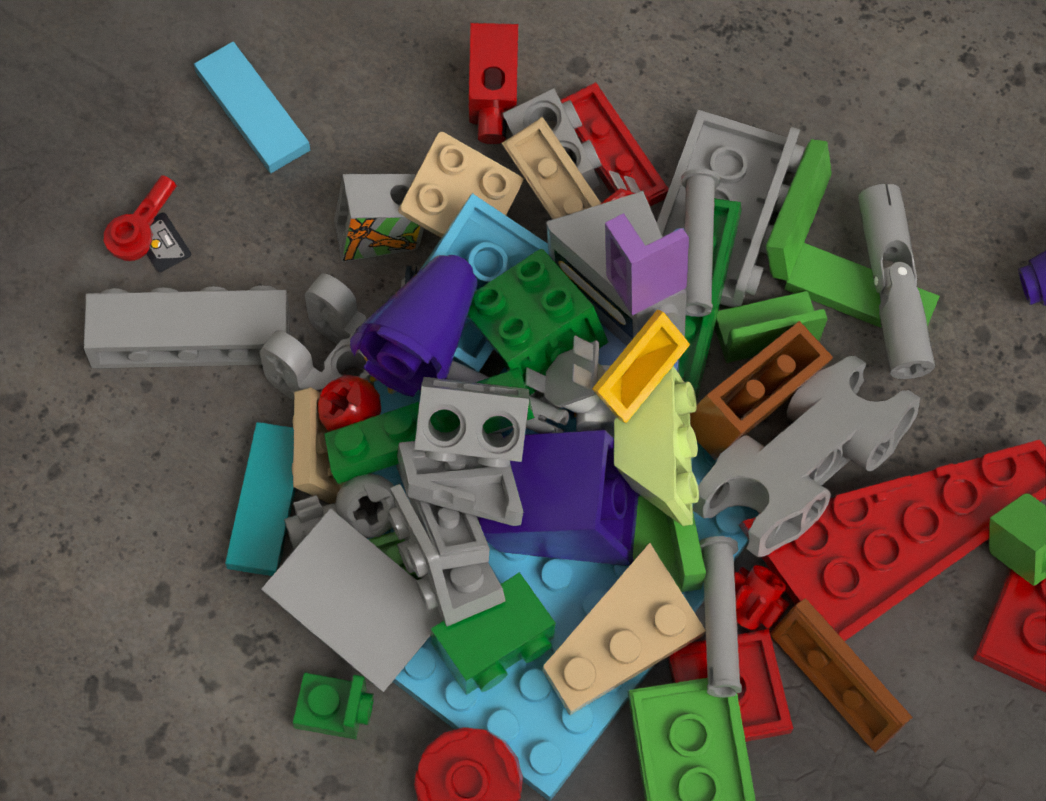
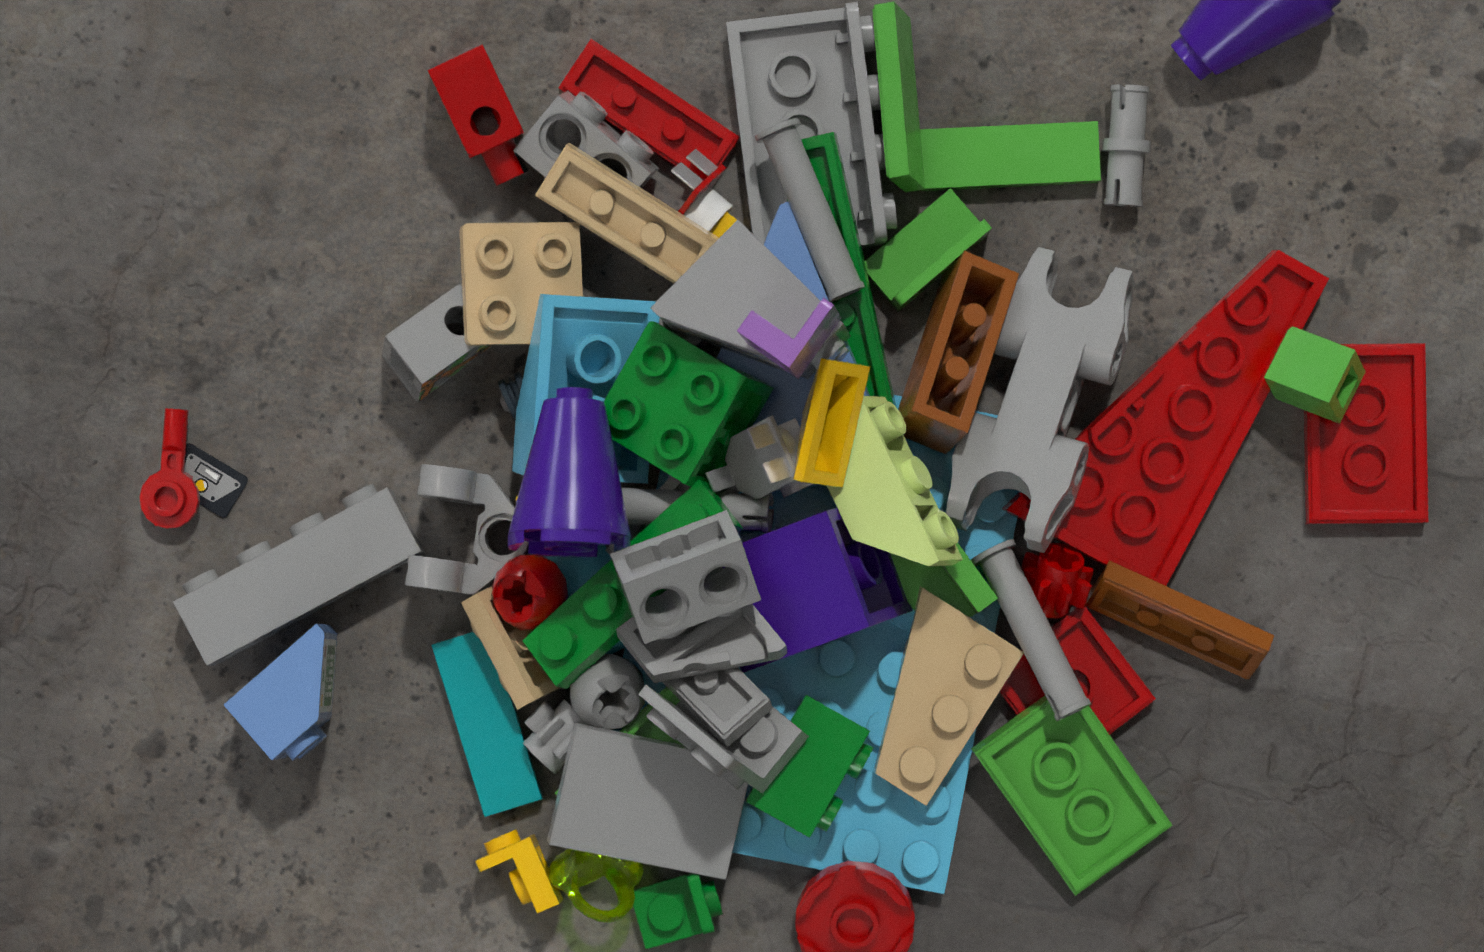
camera: 25 degrees left, 20 degrees up
(134, 395) = (290, 697): none -> medium blue slope
(237, 623) = (532, 872): none -> yellow bracket
(252, 107) = (215, 265): medium azure tile -> none
(282, 636) = (578, 868): none -> clear neon green piece
(901, 305) = (1061, 162): light grey piece -> none
(954, 319) = (1126, 145): none -> light grey pin

